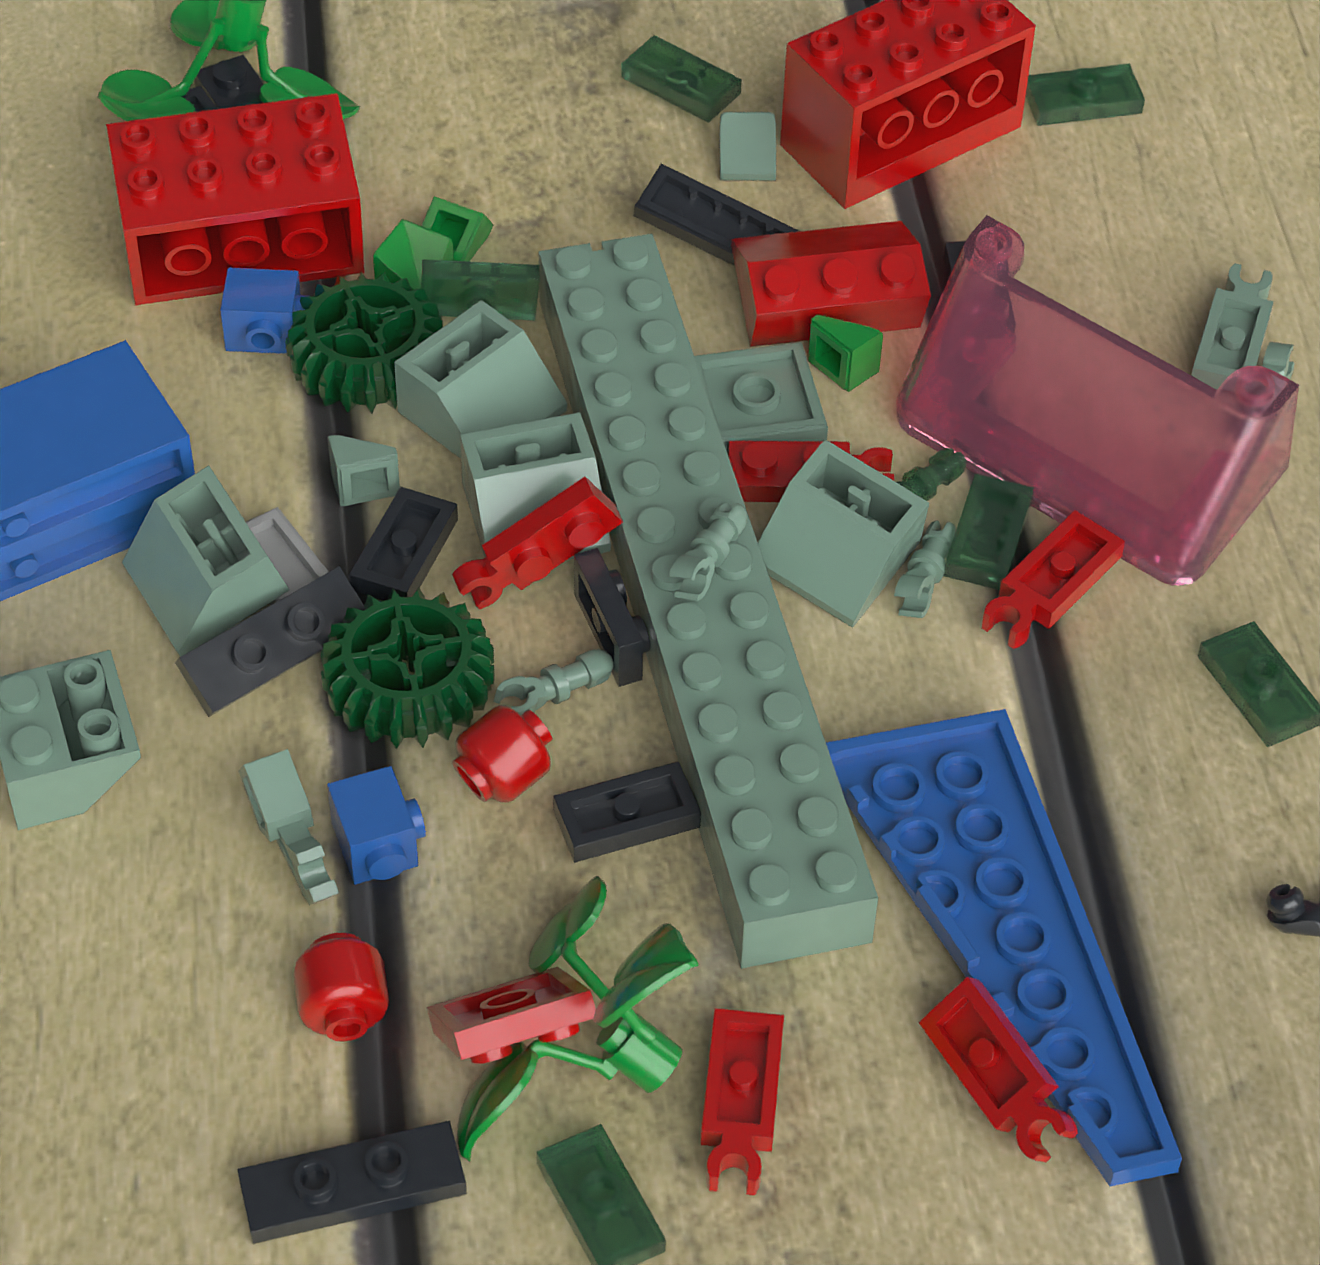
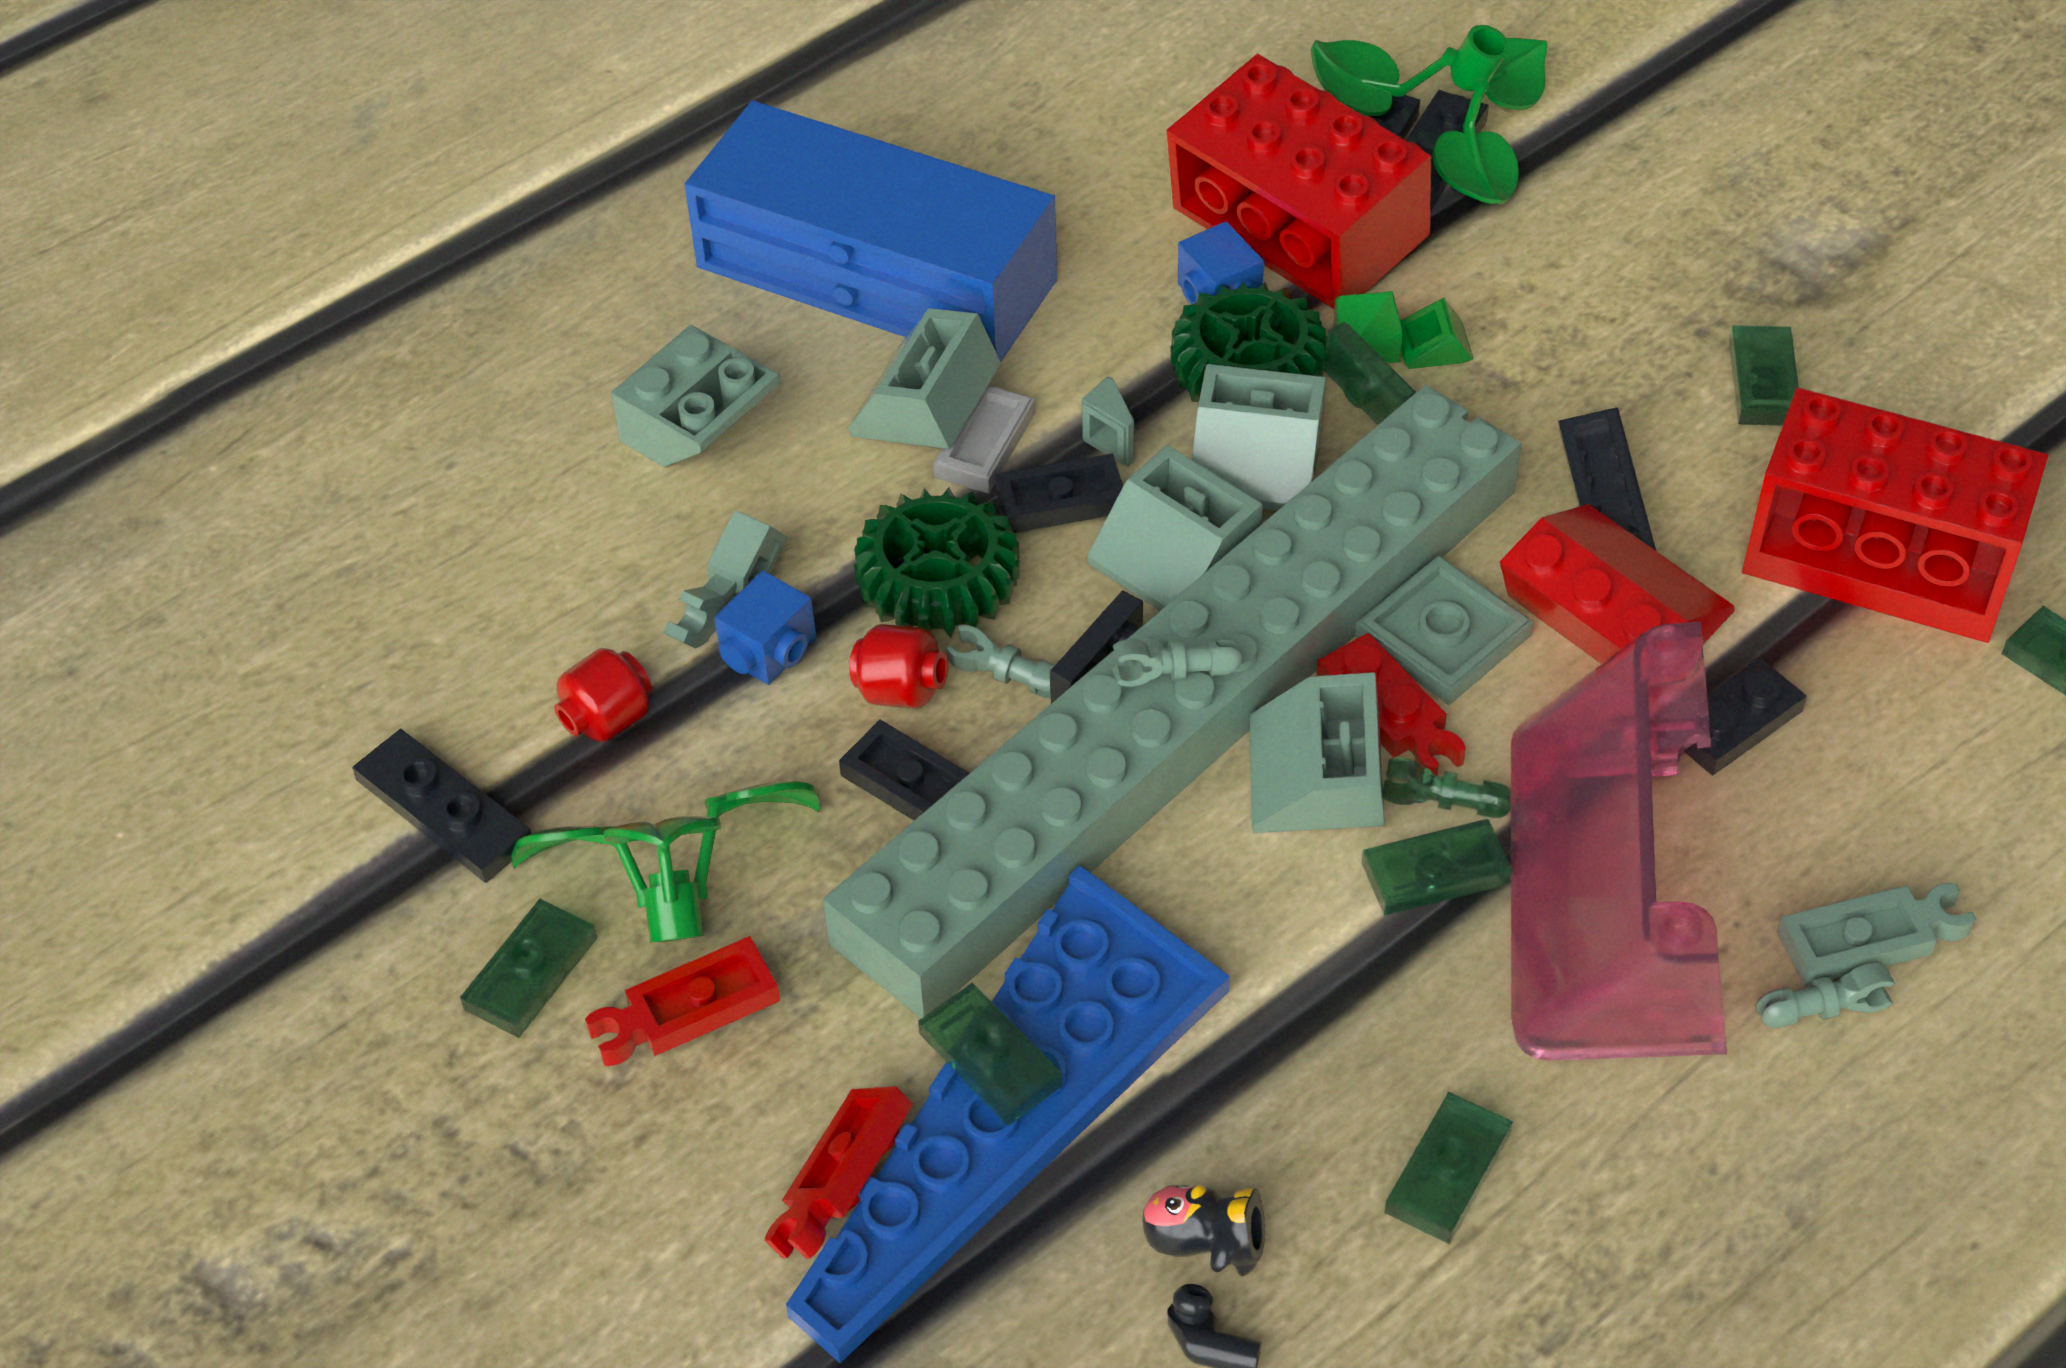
camera: 60 degrees right, 0 degrees up
(267, 642) = (889, 466): black plate -> none
(494, 1018) = (625, 794): plate -> none
(539, 542) = (1118, 561): red plate -> none
(747, 146) = (1730, 463): sand green slope -> none
(845, 350) = (1548, 655): green slope -> none
(925, 570) = (1334, 847): sand green piece -> none
(974, 898) = (990, 1054): none -> clear green plate
(1053, 576) = (1424, 940): red plate -> none
(1220, 852) = (1199, 1221): none -> black animal

